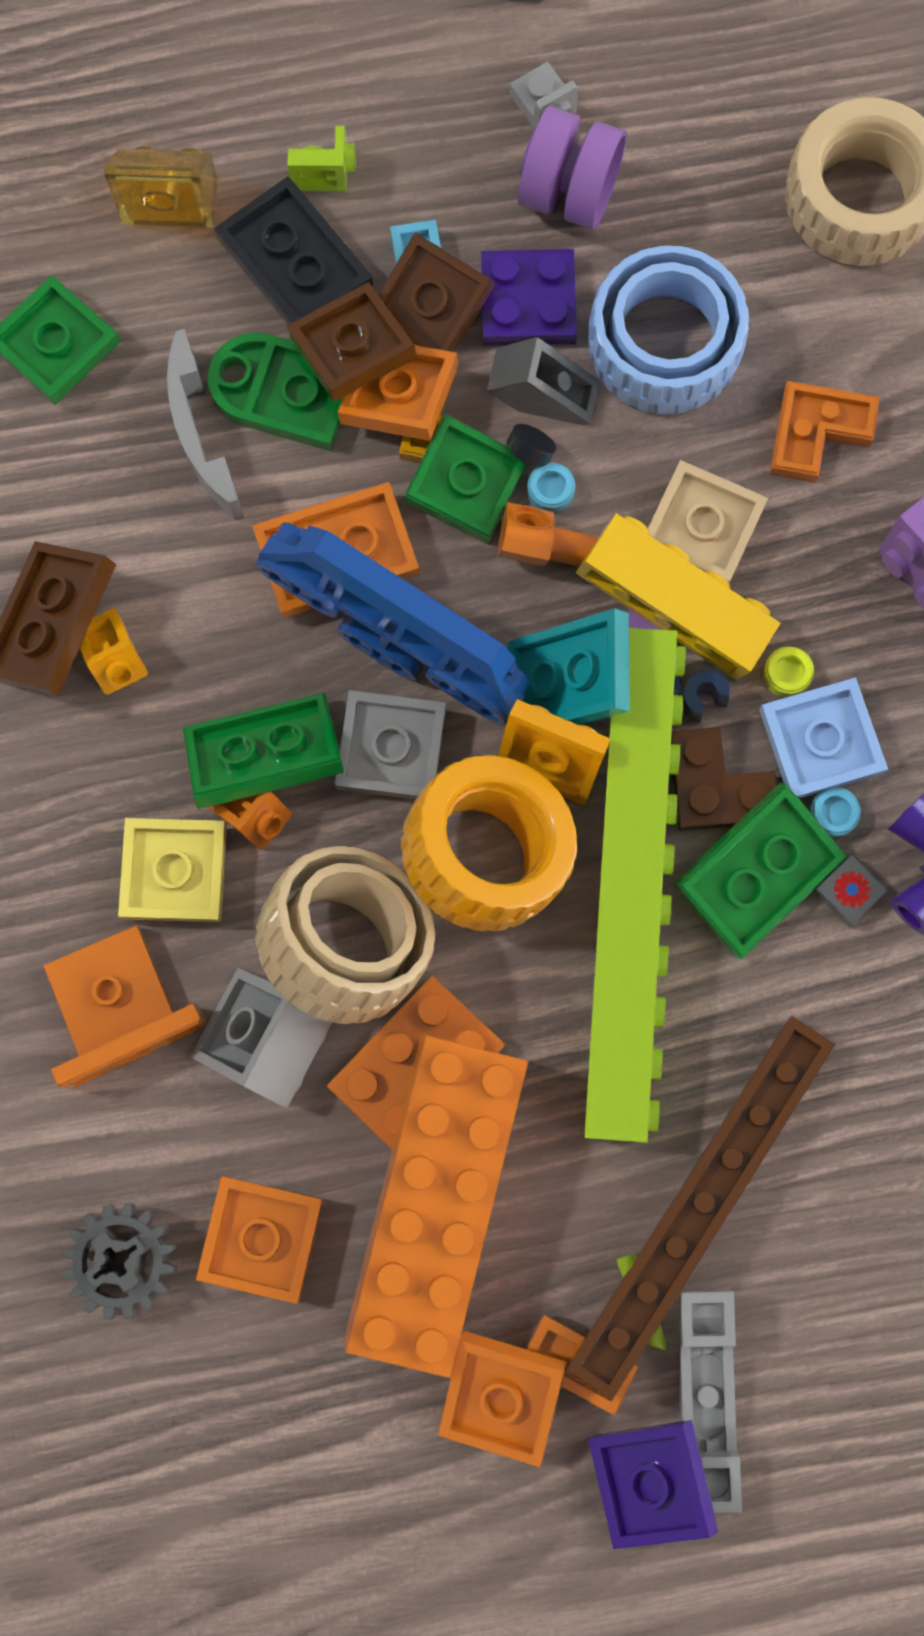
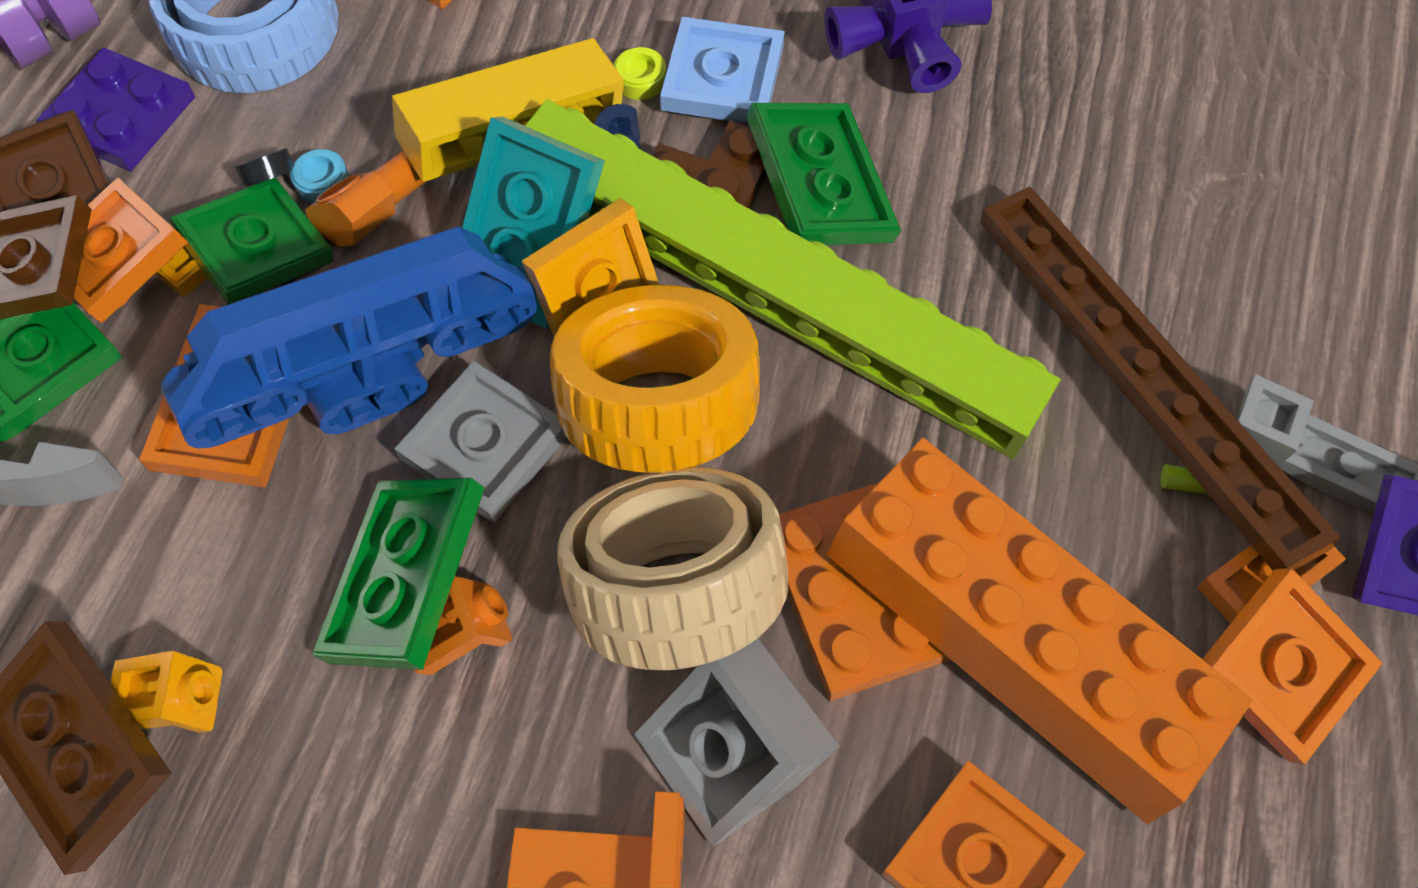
camera: 65 degrees left, 15 degrees down
(172, 870) = (474, 749): light yellow plate -> none
(543, 382) = (207, 127): dark grey slope -> none
(707, 518) = (443, 51): tan plate -> none
(836, 811) = (798, 88): medium azure tile -> none
(850, 890) = (883, 117): dark grey tile -> none

